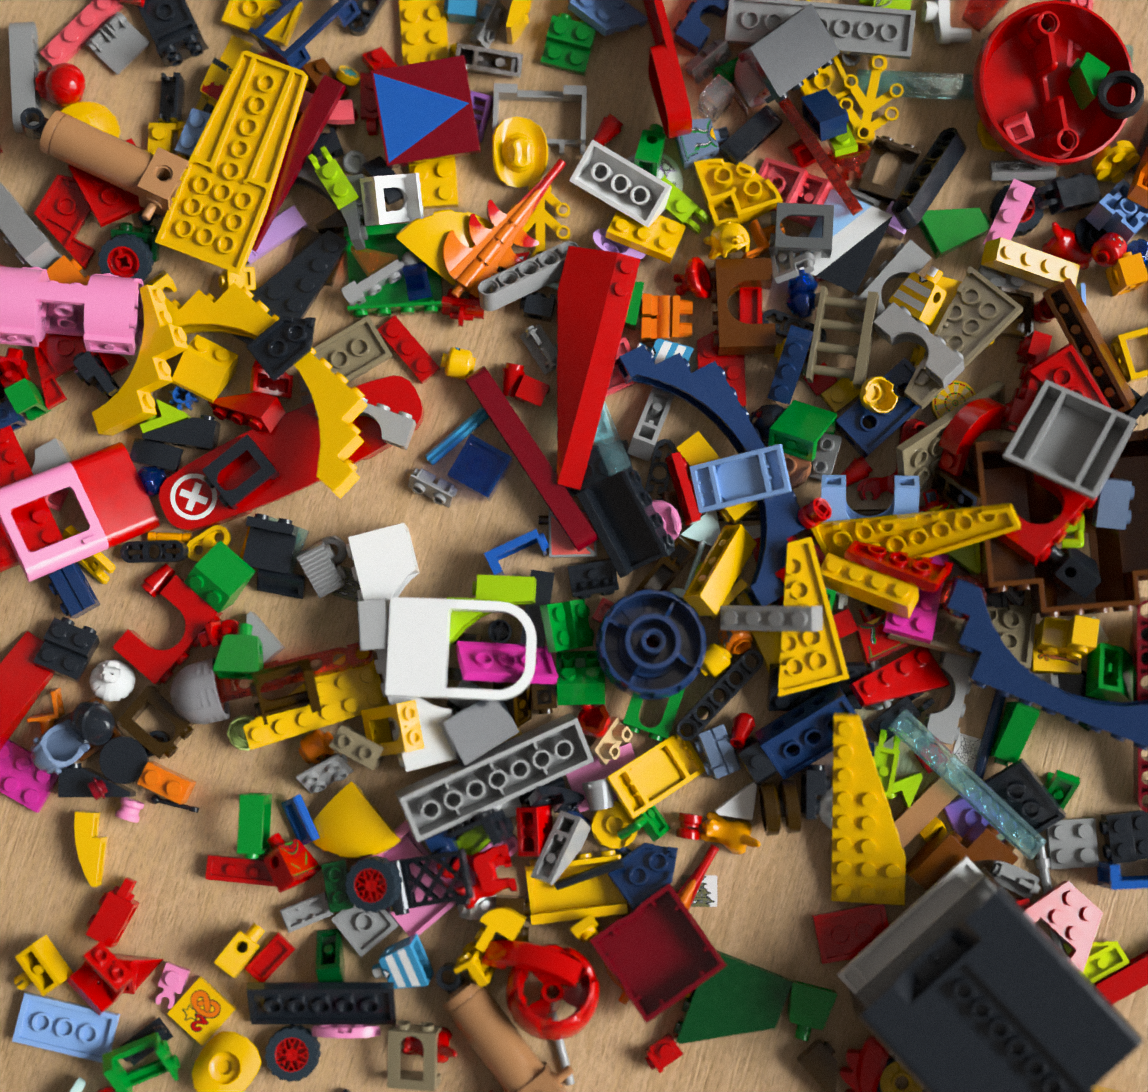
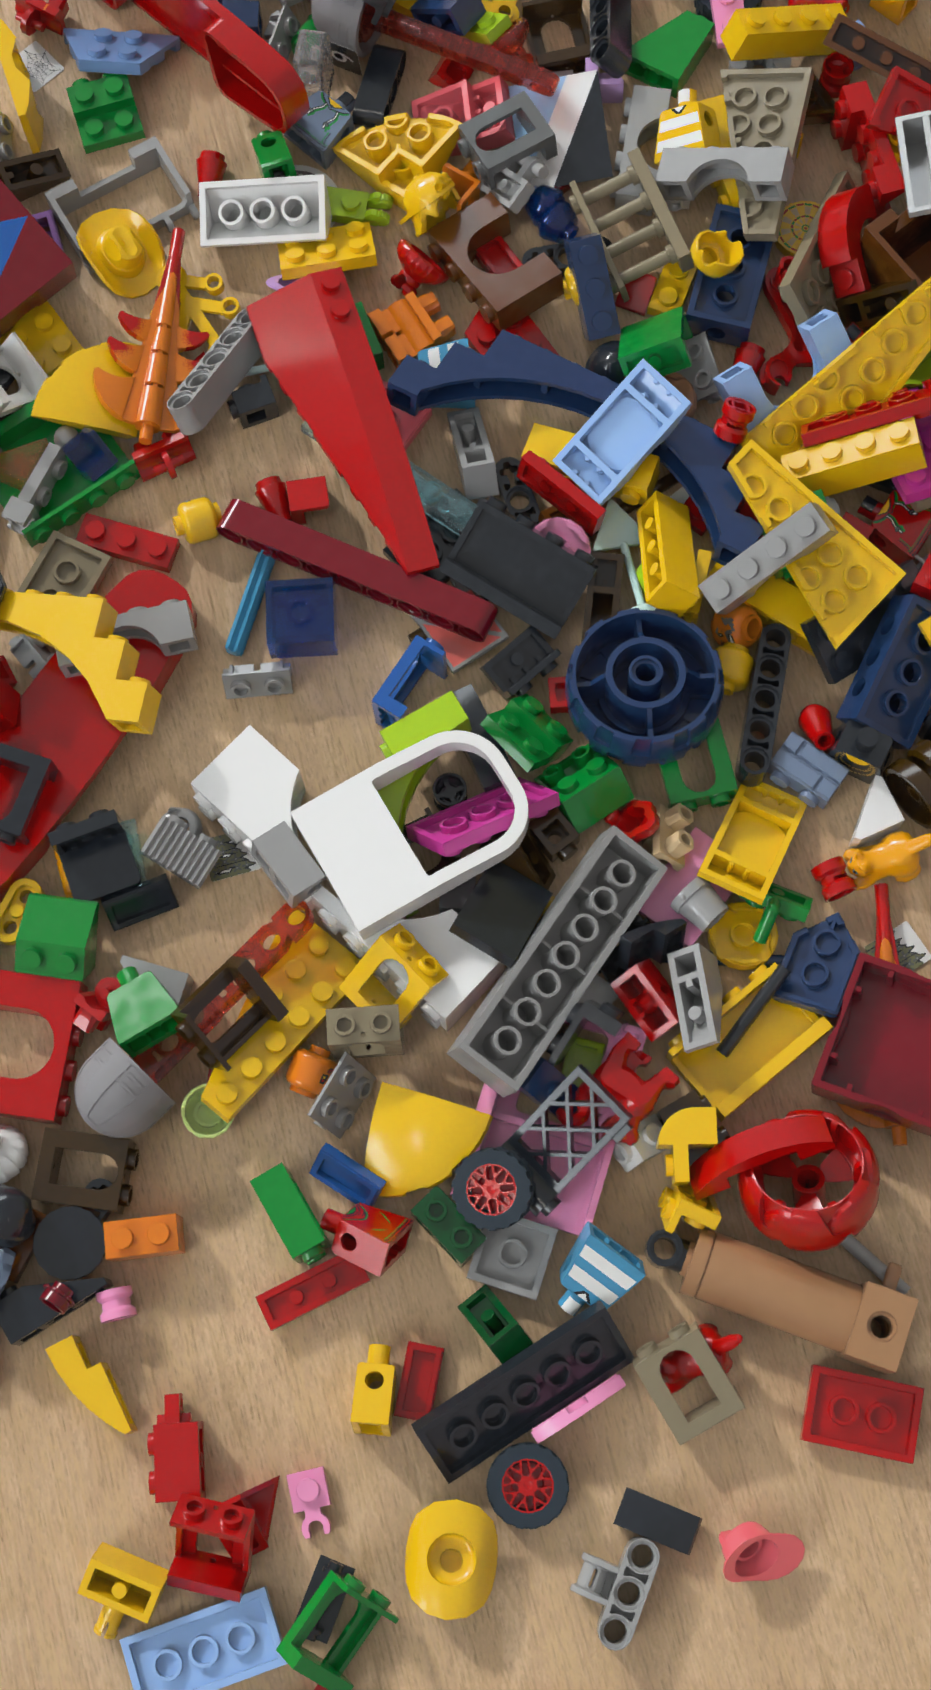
camera: 30 degrees left, 10 degrees down
(155, 799) = (143, 1272): black hinge -> none
(201, 1011) = (372, 1510): yellow tile -> none
(306, 912) = (429, 1289): light grey plate -> none
(540, 348) = (287, 448): light grey hinge -> none
(587, 929) = (796, 1077): yellow plate -> none

